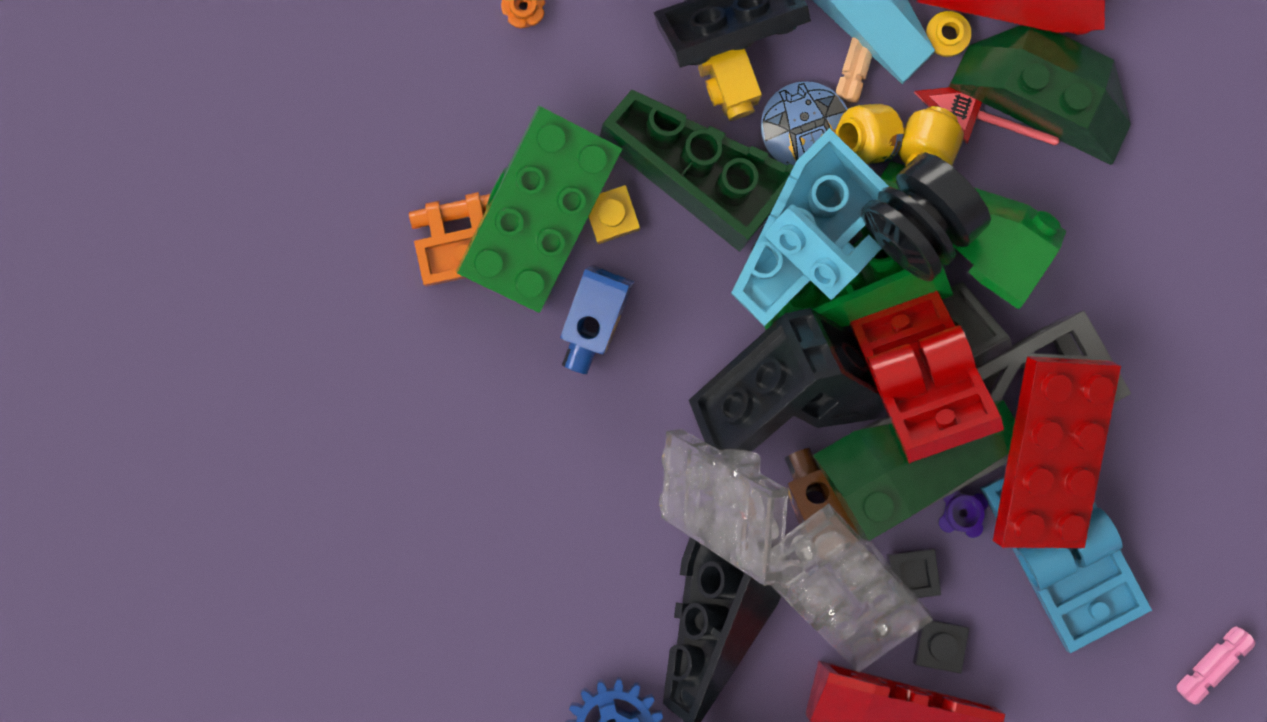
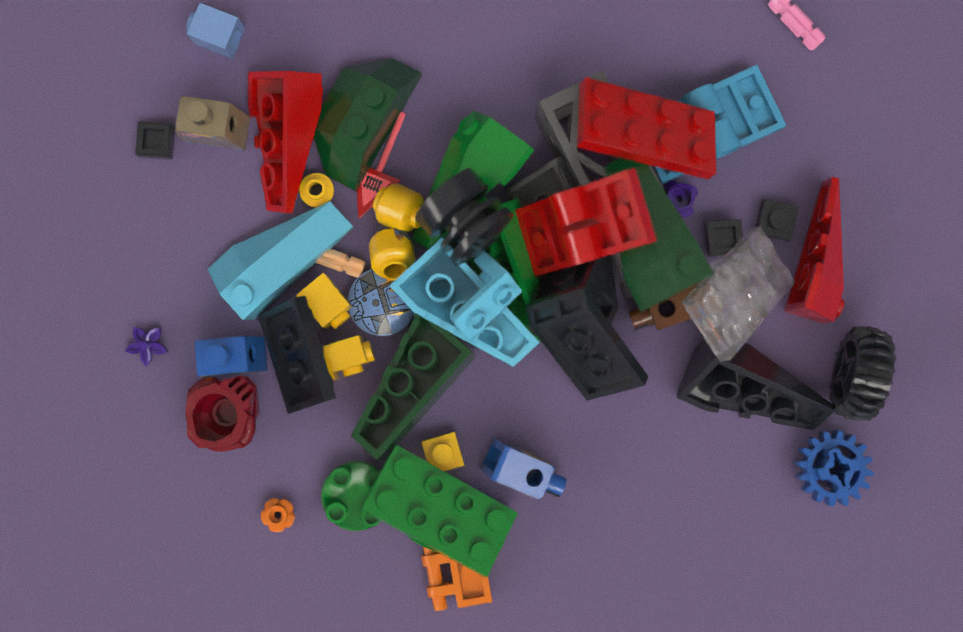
camera: 90 degrees left, 0 degrees up
(554, 87) = (345, 493): none -> green dish
(725, 504) = (676, 379): clear plate -> none
(801, 53) = (326, 302): none -> yellow brick

